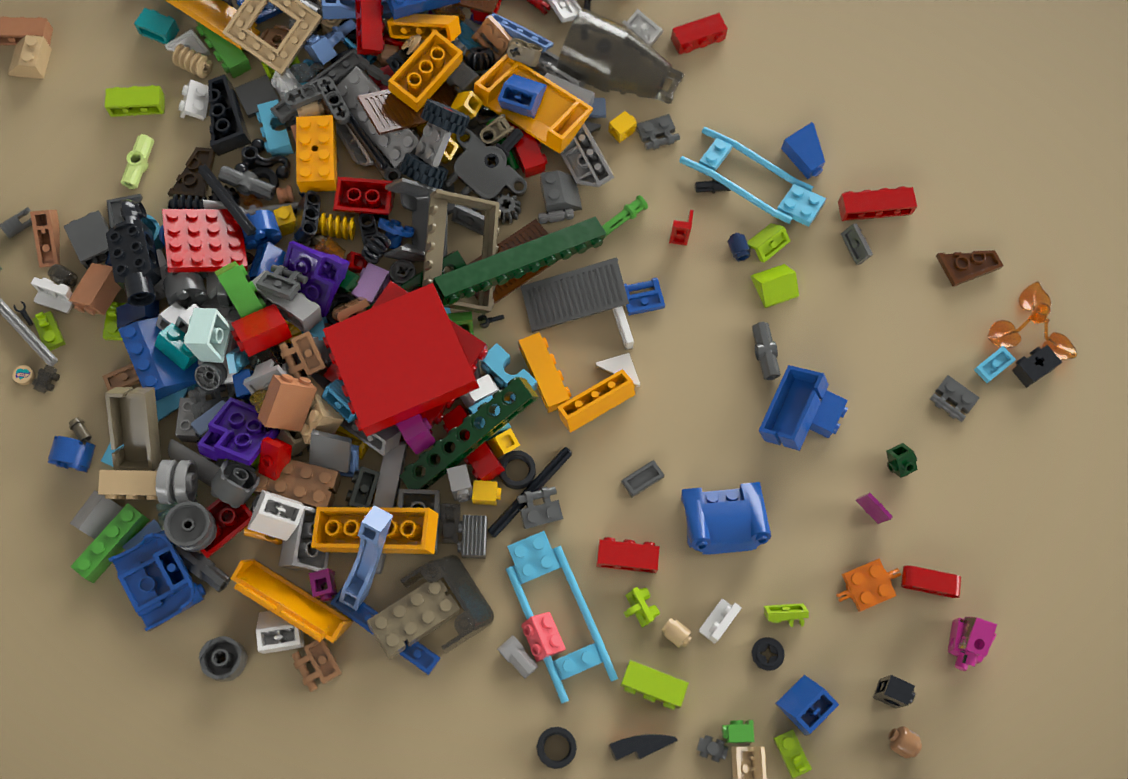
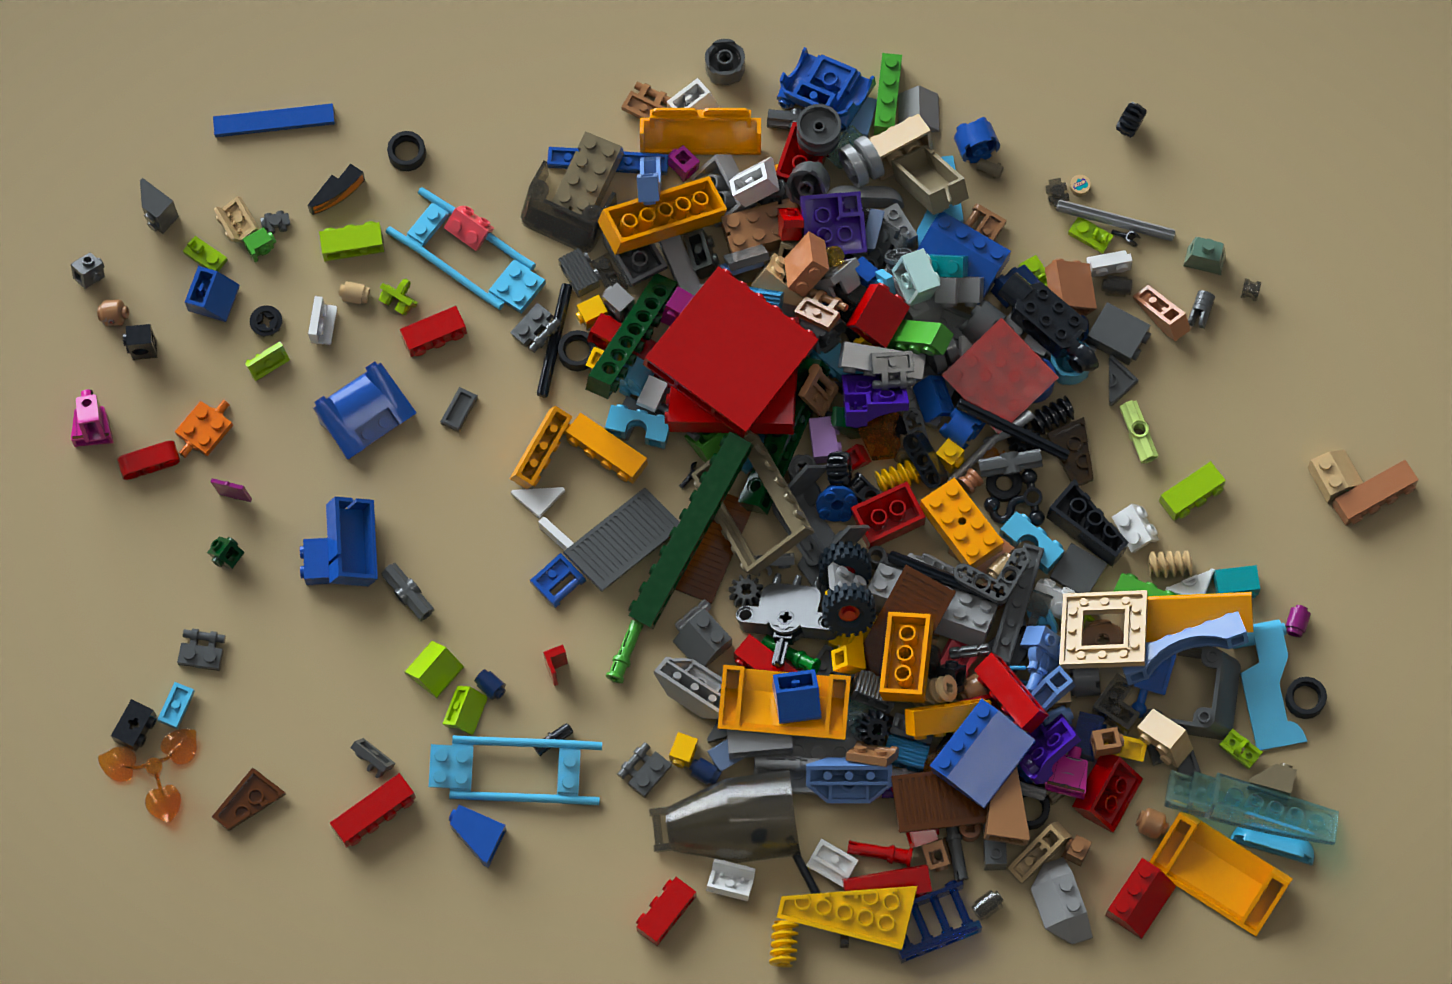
camera: 155 degrees right, 0 degrees up
(497, 130) = (800, 651): dark tan piece -> none
(514, 652) = (485, 201): light grey piece -> none
(526, 53) = (831, 747): dark tan piece -> none
(615, 104) = (705, 771): none -> dark blue brick

